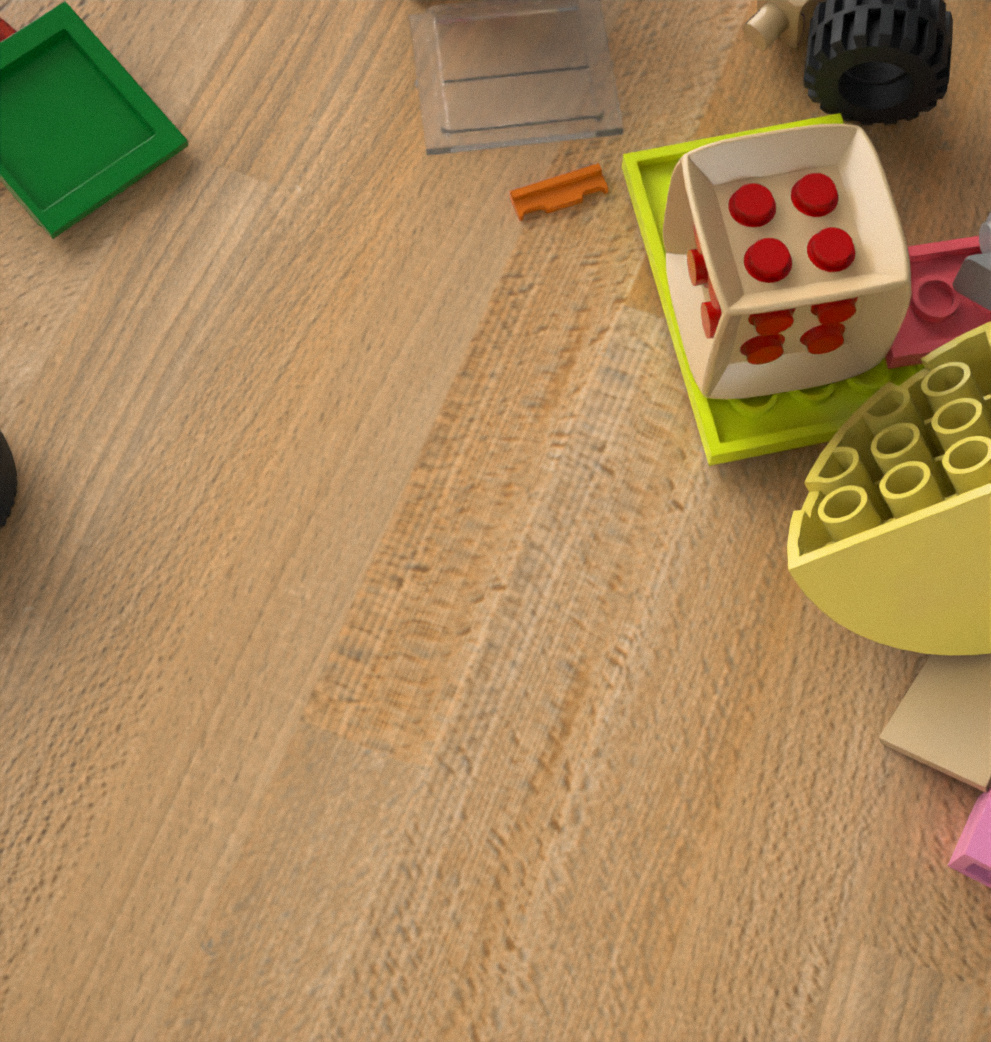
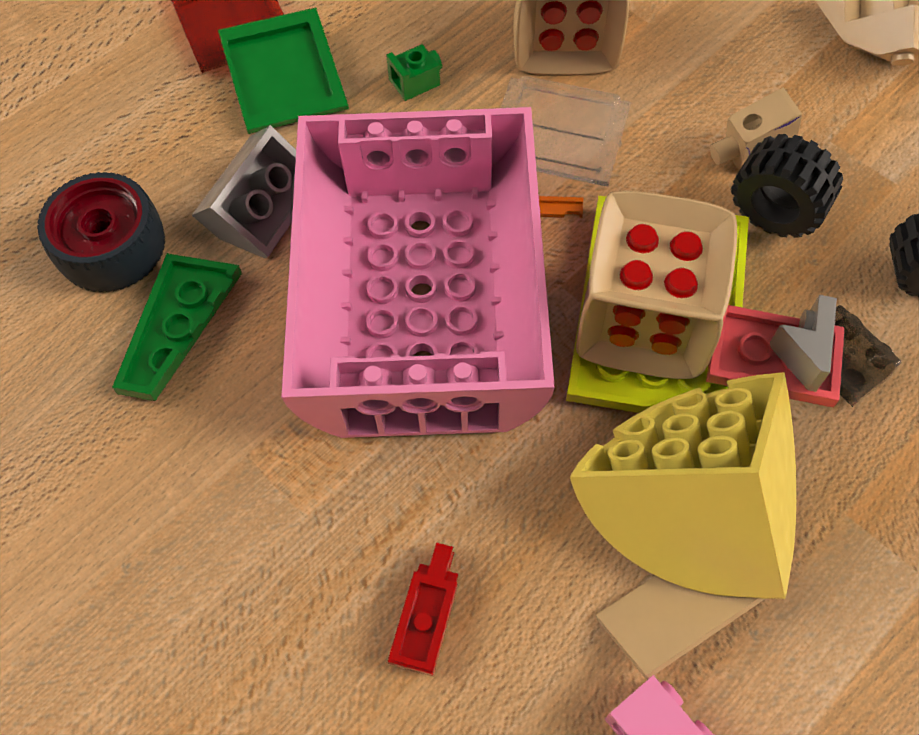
camera: 25 degrees right, 5 degrees down
(93, 558) = (173, 319): none -> green wing
(122, 326) = (253, 195): none -> light grey slope
(263, 53) = (414, 71): none -> green brick
(501, 296) = (358, 259): none -> bright pink slope
(664, 830) = (425, 614): none -> red hinge

